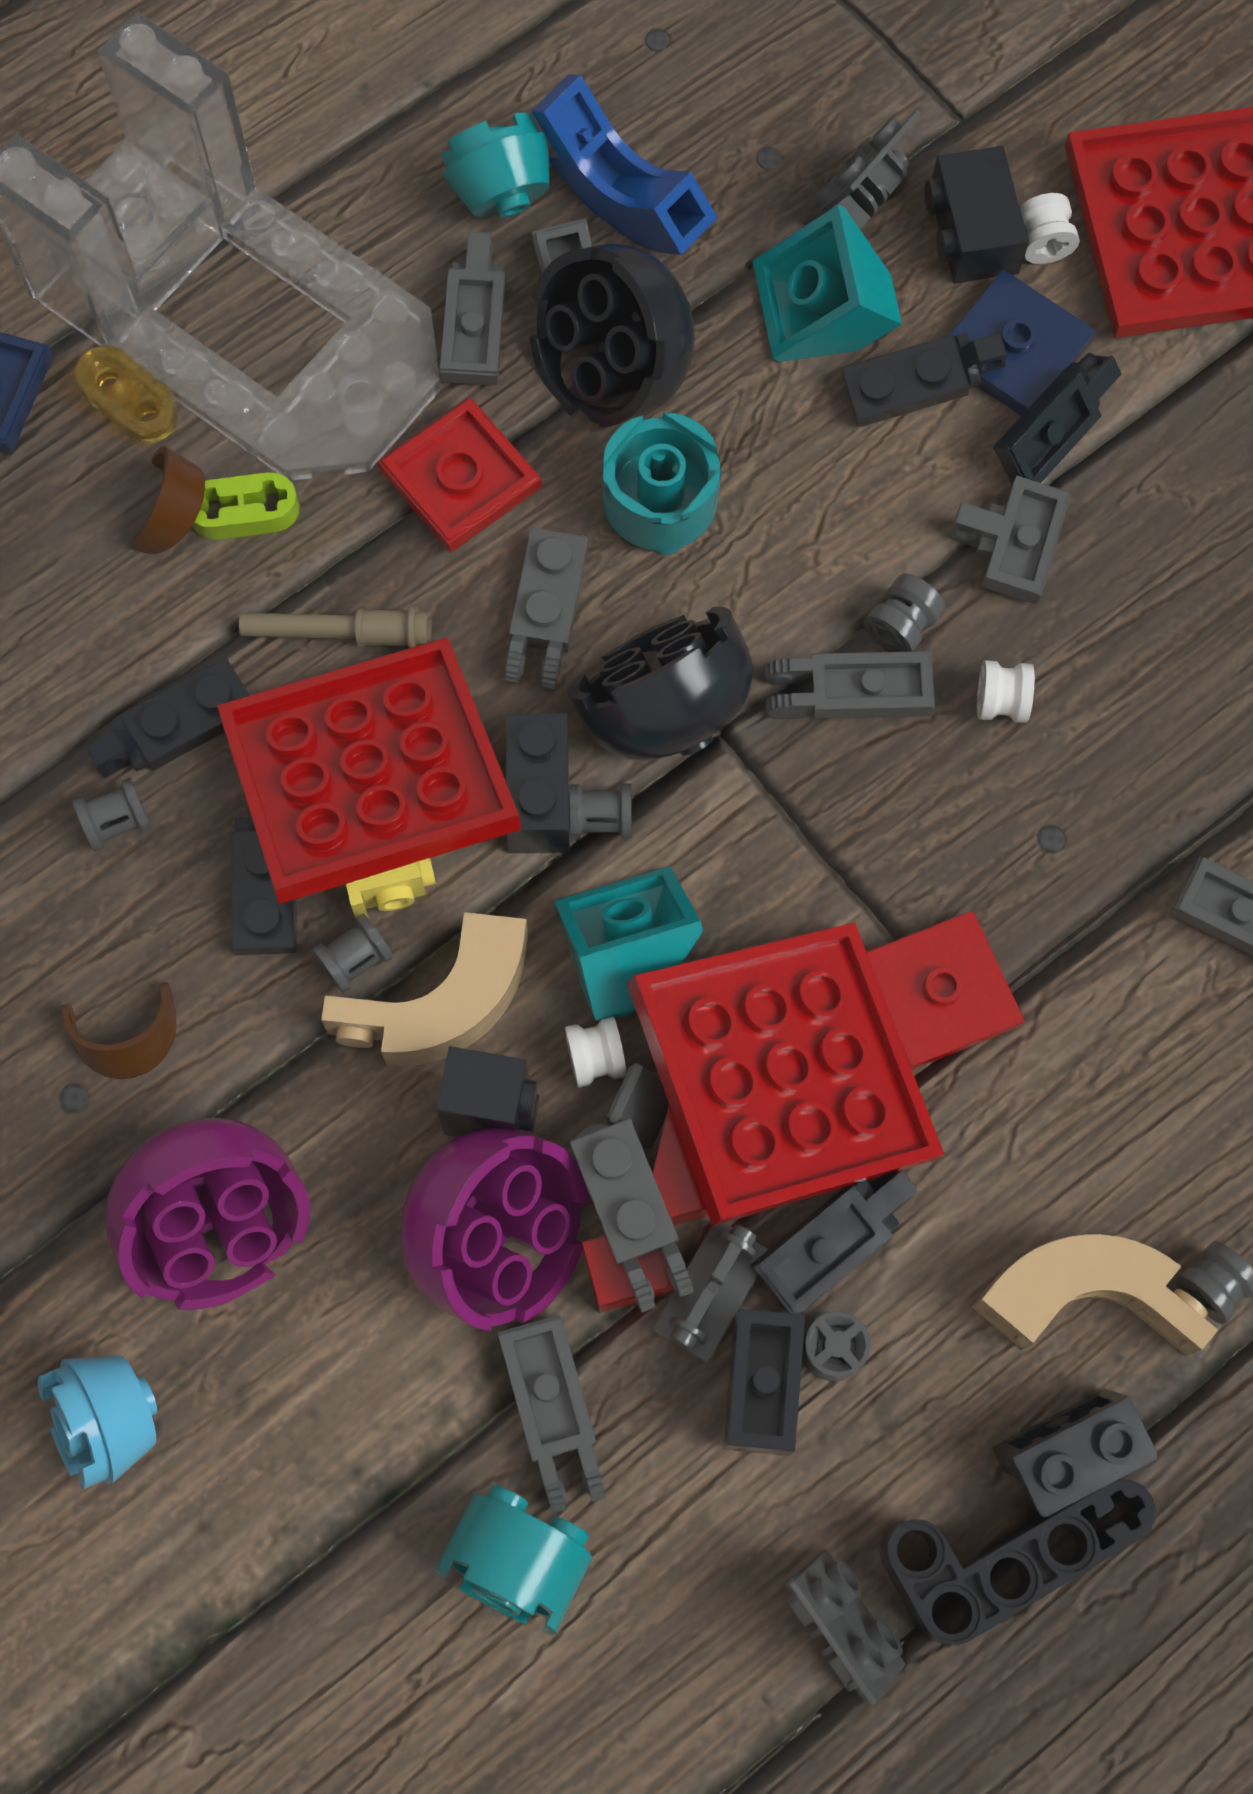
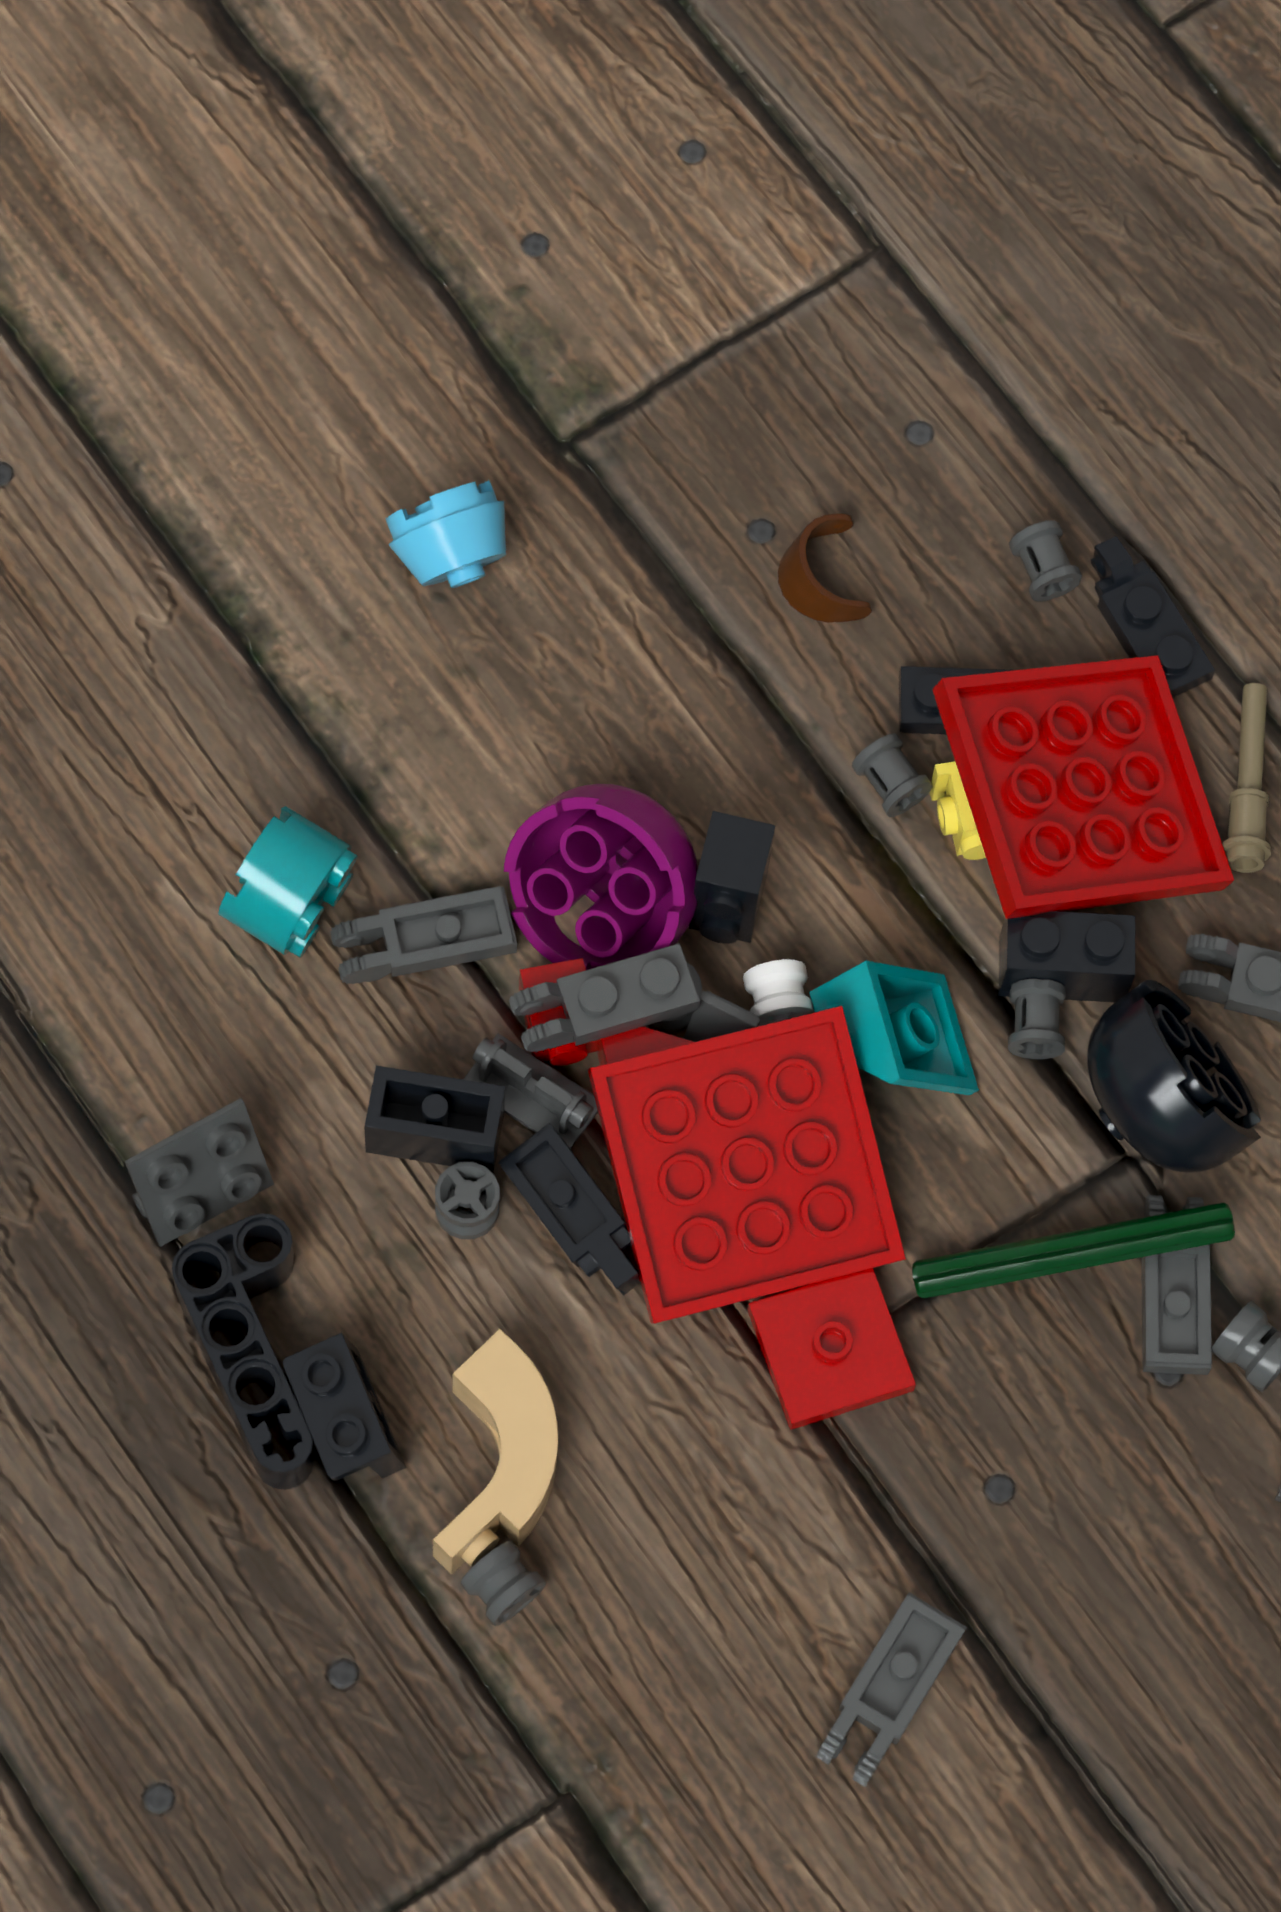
camera: 90 degrees right, 5 degrees down
(199, 1181) = (660, 609): magenta cylinder -> none
(453, 1013) = (840, 883): tan arch -> none
(835, 772) = (1073, 1250): none -> dark green axle
(1005, 691) = (1165, 1444): white wheel -> none

